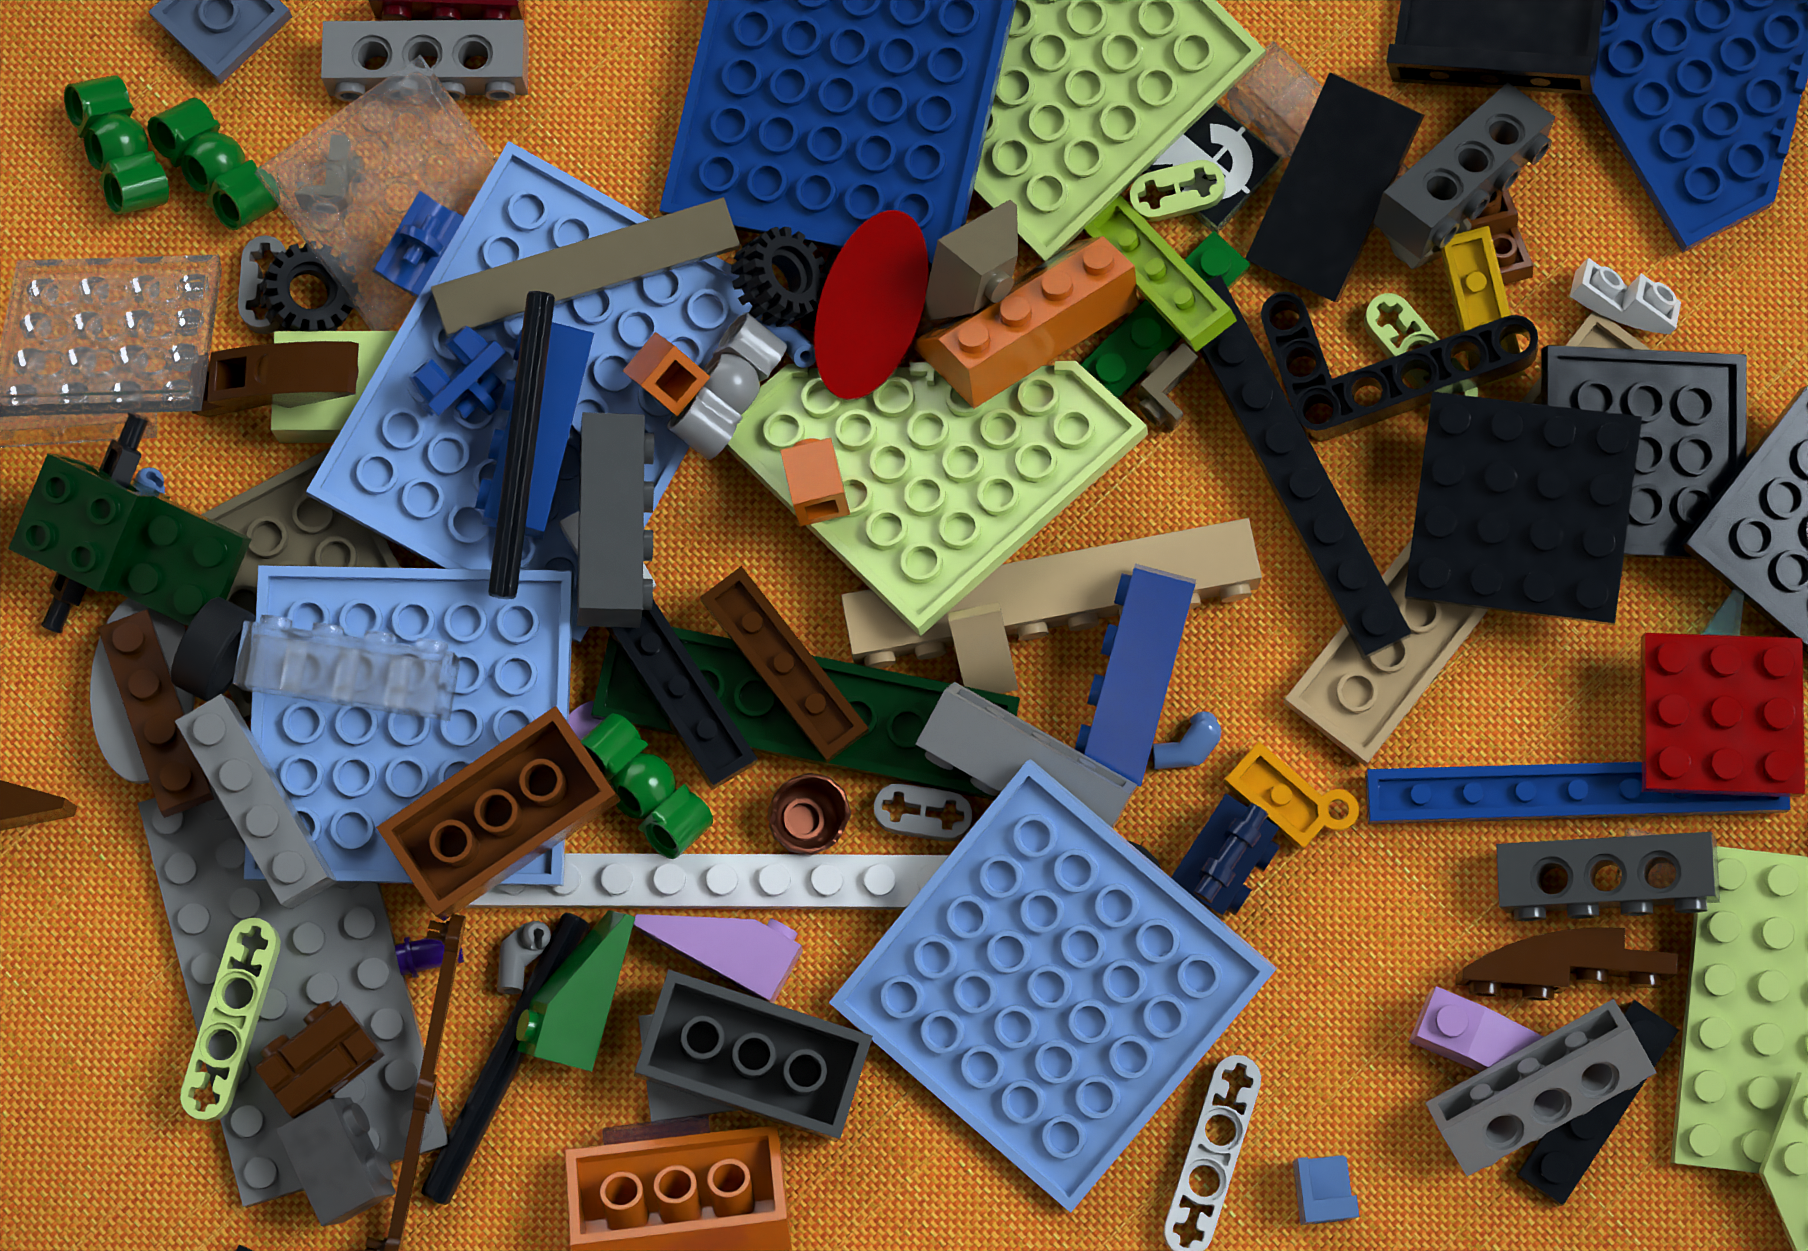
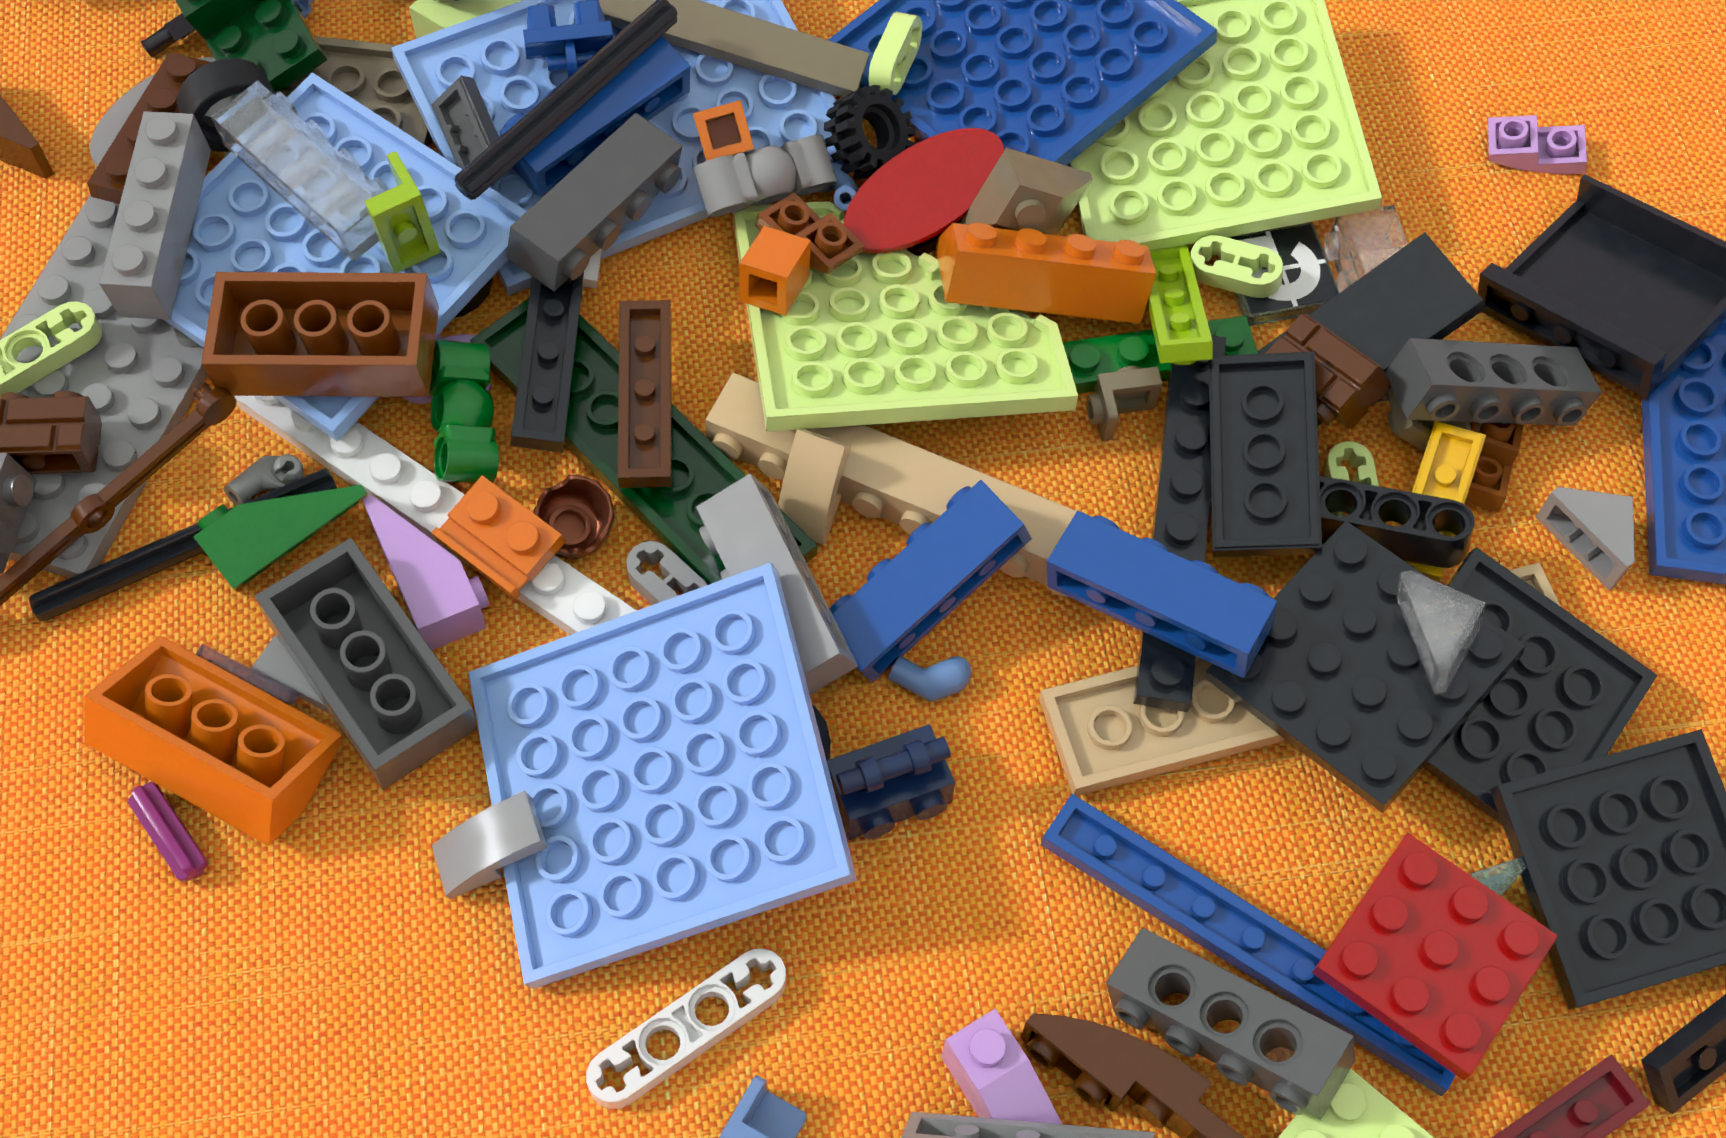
camera: 30 degrees right, 15 degrees down
(420, 955) = (215, 438): dark purple pin -> none
(445, 526) = (464, 120): none -> dark grey plate
(491, 666) = (402, 220): none -> lime panel
(747, 181) = (896, 52): none -> yellowish green beam
(766, 876) = (499, 537): none -> orange plate
(790, 417) = (830, 239): none -> dark orange slope
(962, 1129) = (486, 842): none -> light grey slope
(1287, 797) = (983, 773): light orange hinge -> none
(1326, 258) = (1344, 376): none -> reddish brown brick
(1329, 373) = (1264, 455): none -> black tile
(1335, 561) = (1161, 592): none -> blue brick
(1573, 451) = (1440, 623): none -> clear slope
(1620, 243) = (1594, 529): none -> light grey slope
(1639, 305) = (1587, 588): white slope -> none

